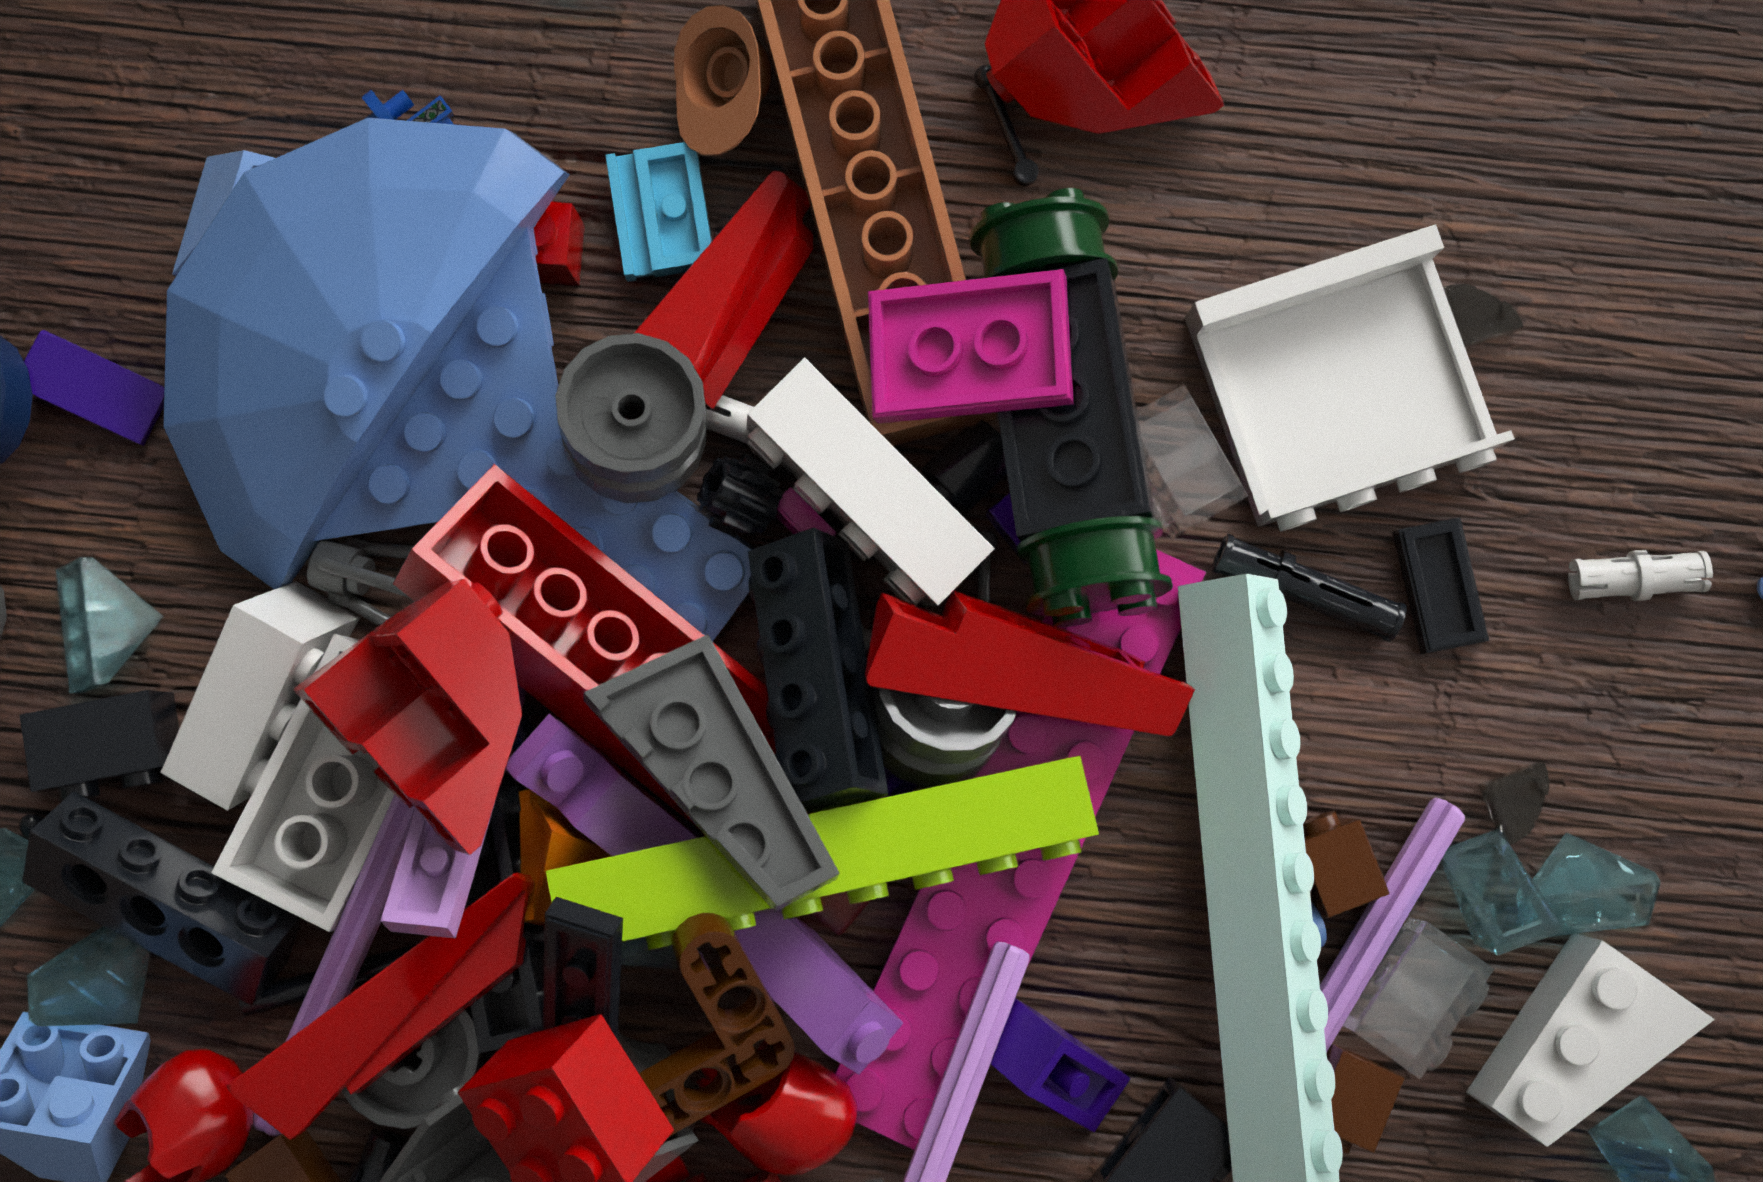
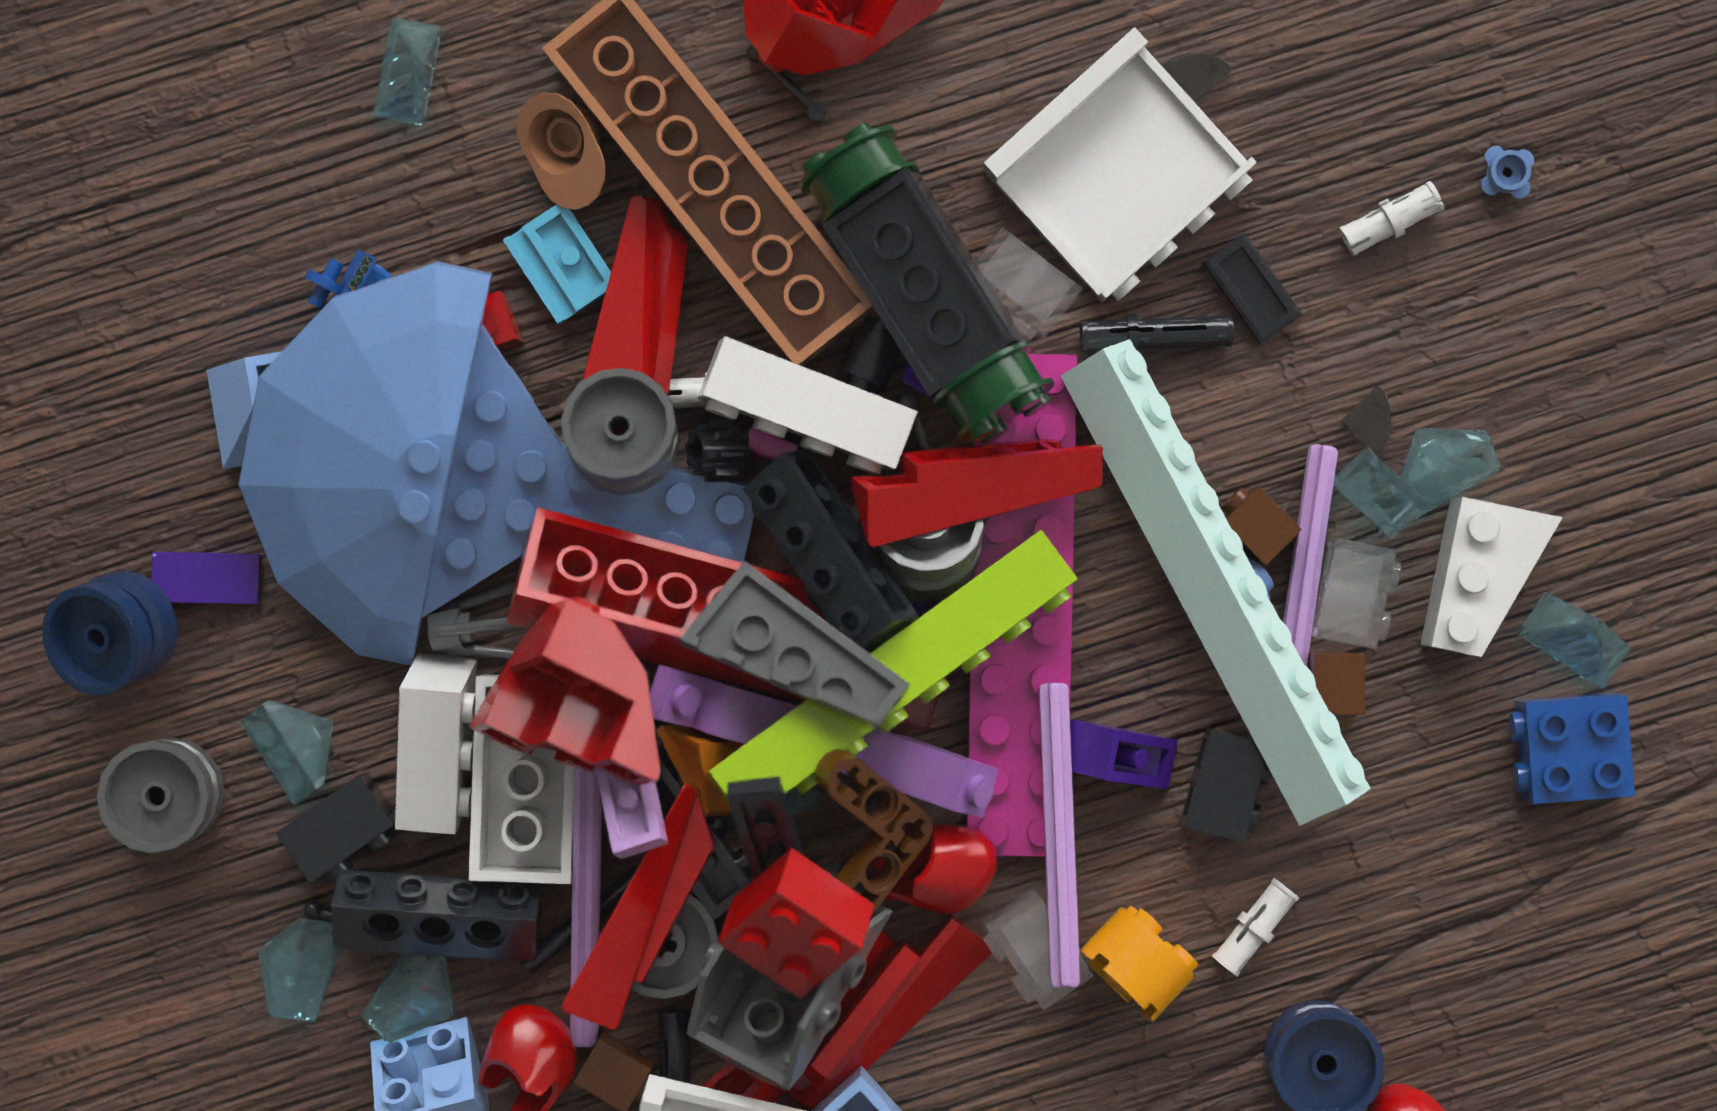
camera: 25 degrees left, 5 degrees up
(970, 347) = (837, 274): dark pink tile -> none

